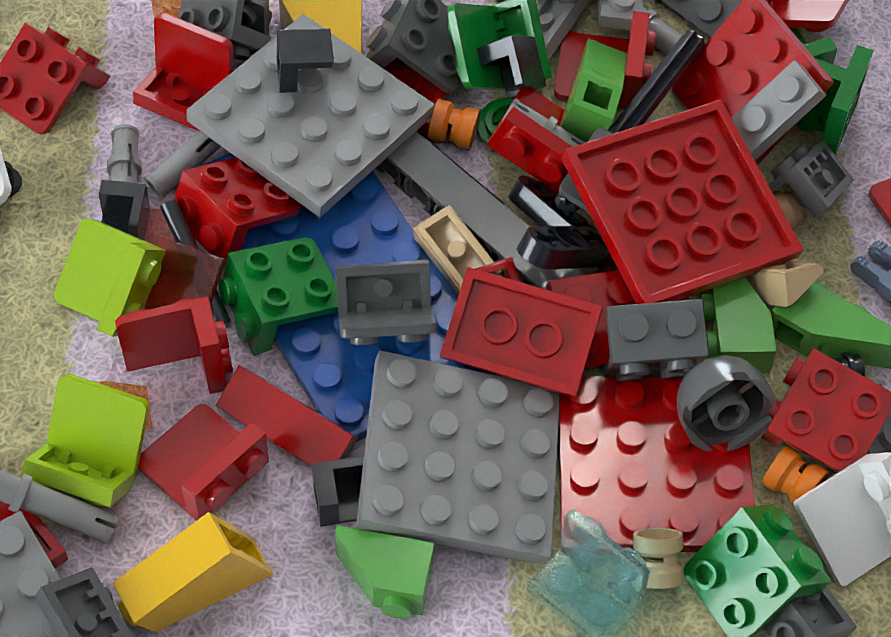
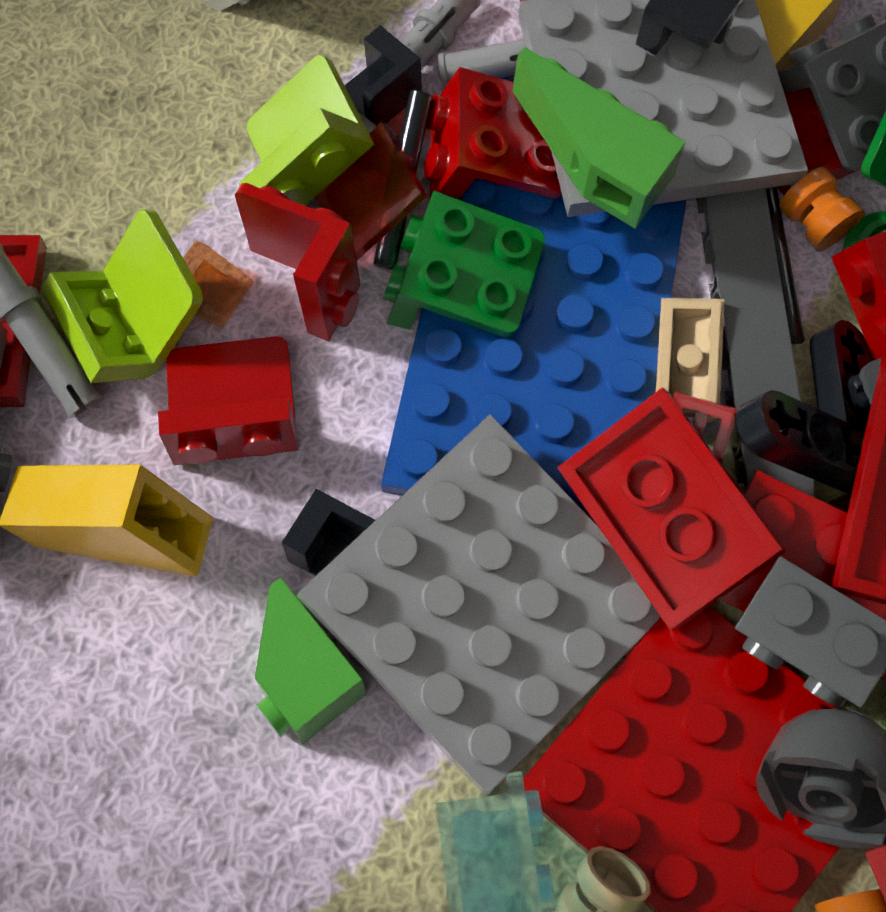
camera: 45 degrees right, 10 degrees up
(284, 418) = (348, 419): red tile -> none
(315, 158) = (602, 145): none -> bright green slope
(384, 301) = (544, 364): dark grey bracket -> none

